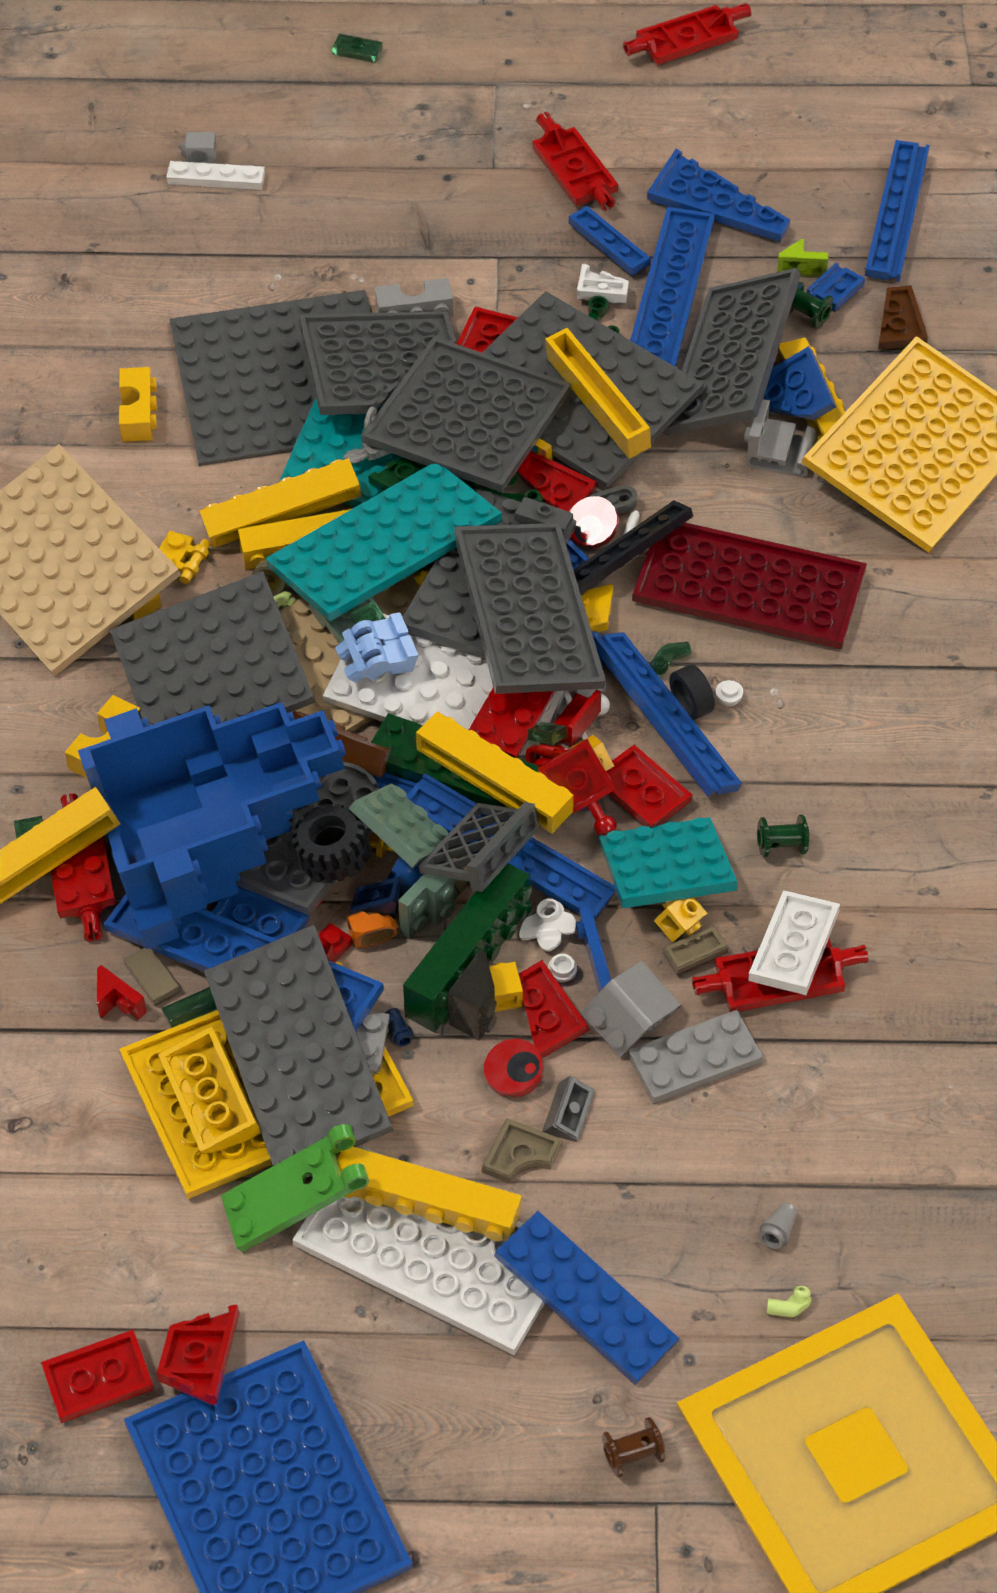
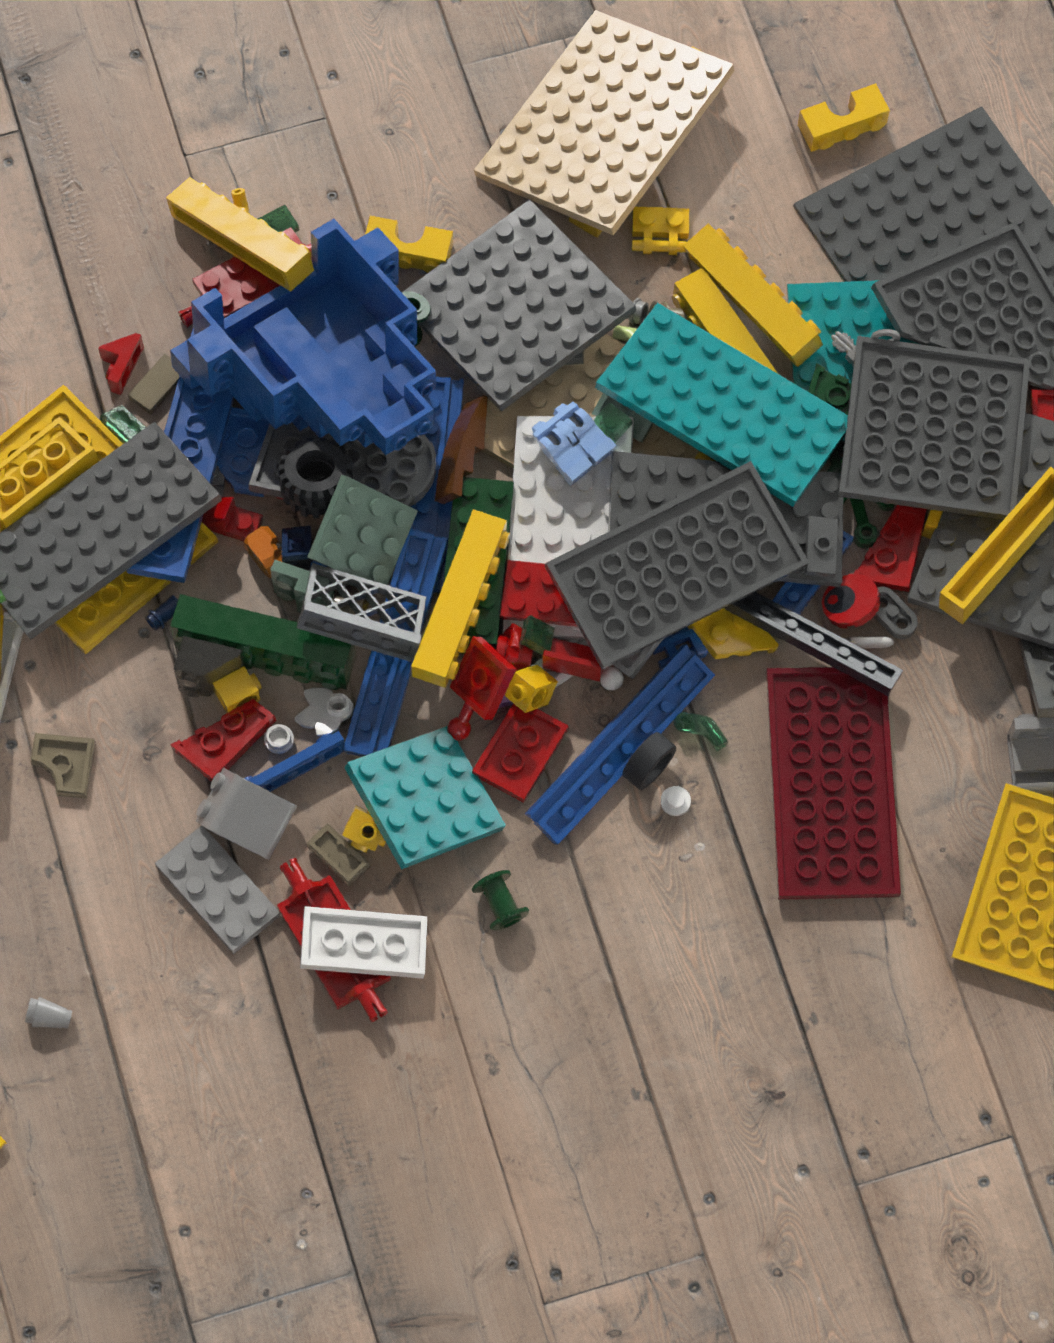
camera: 70 degrees right, 15 degrees up
(372, 1036) = (127, 593): light grey hinge -> none
(513, 1067) = (149, 728): red tile -> none
(568, 1109) = (123, 792): dark grey slope -> none

